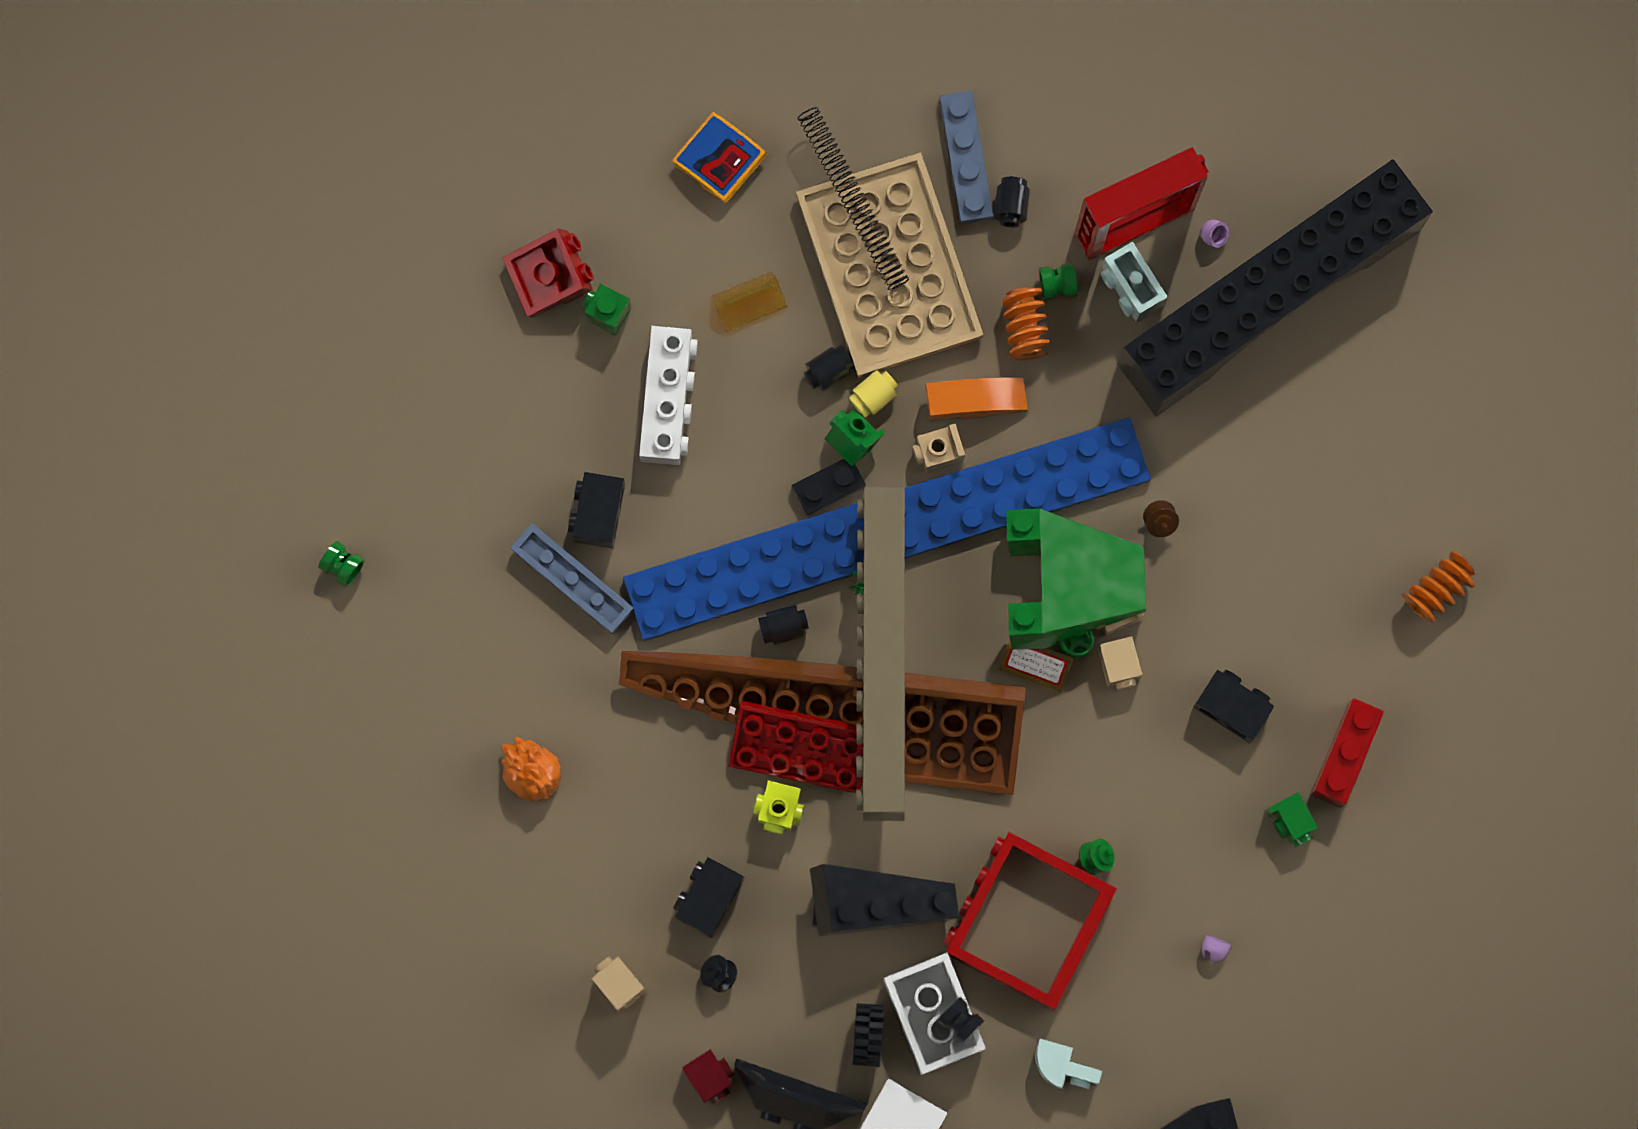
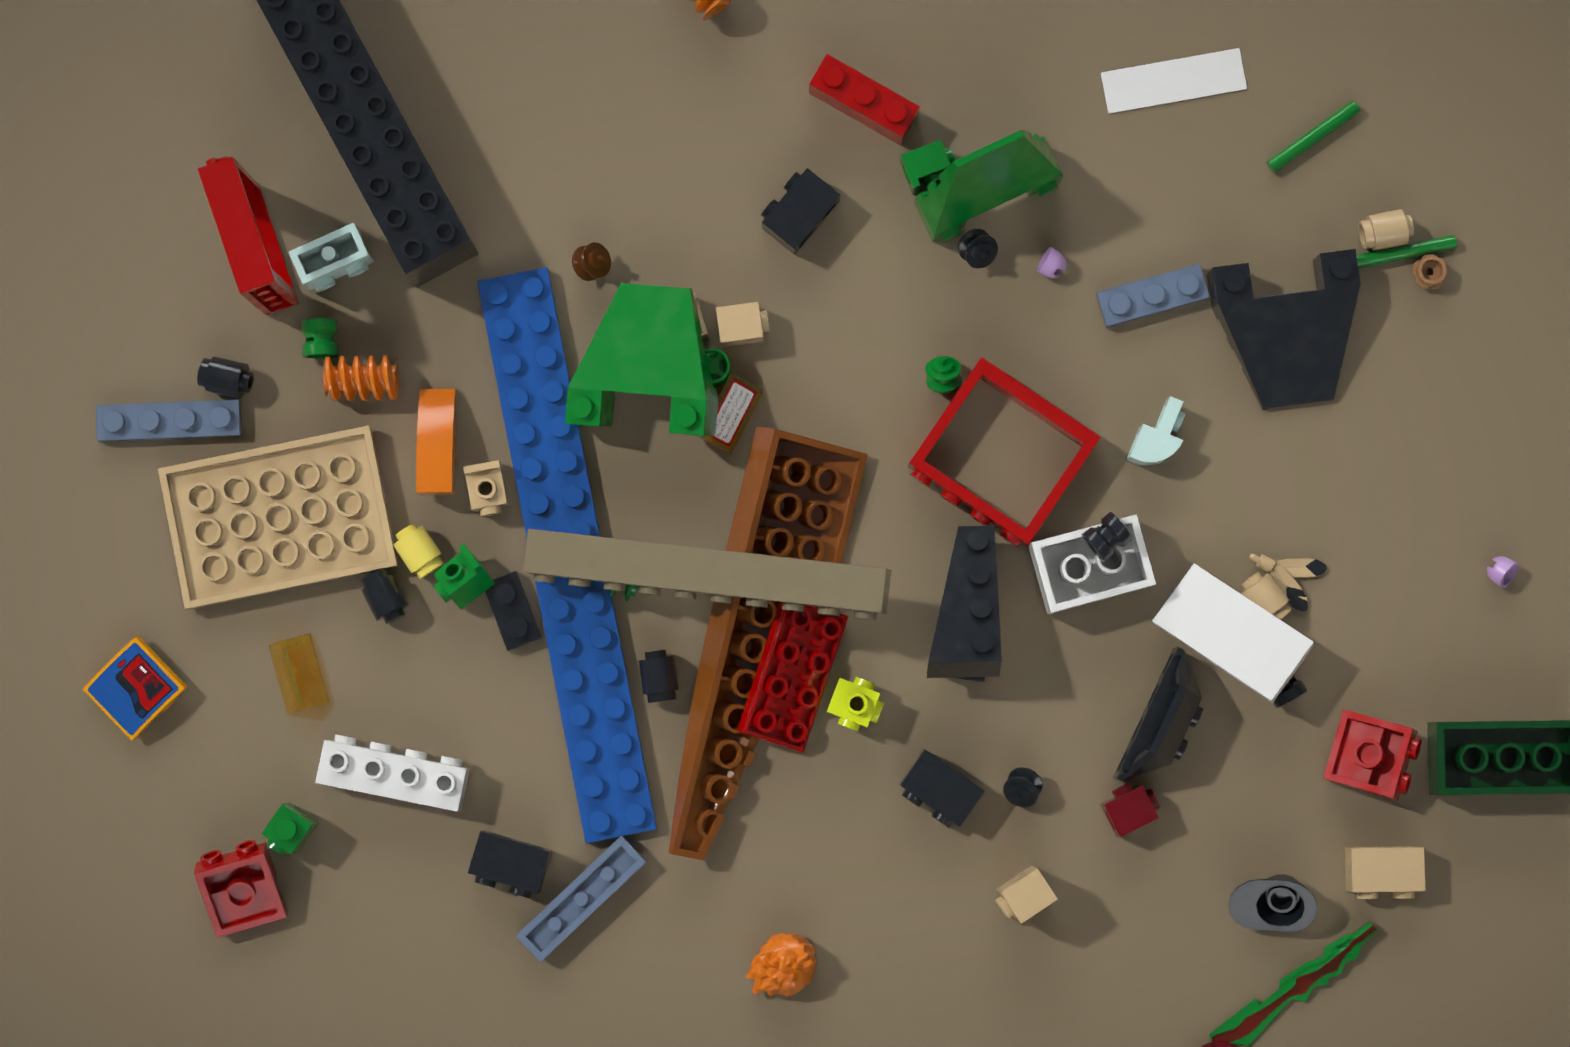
camera: 80 degrees left, 5 degrees up
(852, 199) = (101, 580): black piece -> none
(868, 1034) = (1106, 636): black tyre -> none
(1197, 1047) = (1152, 295): none -> sand blue plate
(1214, 233) = (287, 165): lavender hinge -> none
(1220, 876) = (978, 248): none -> black wheel
(1284, 875) = (987, 180): none -> green wedge
(1407, 1047) = (1173, 80): none -> white sticker

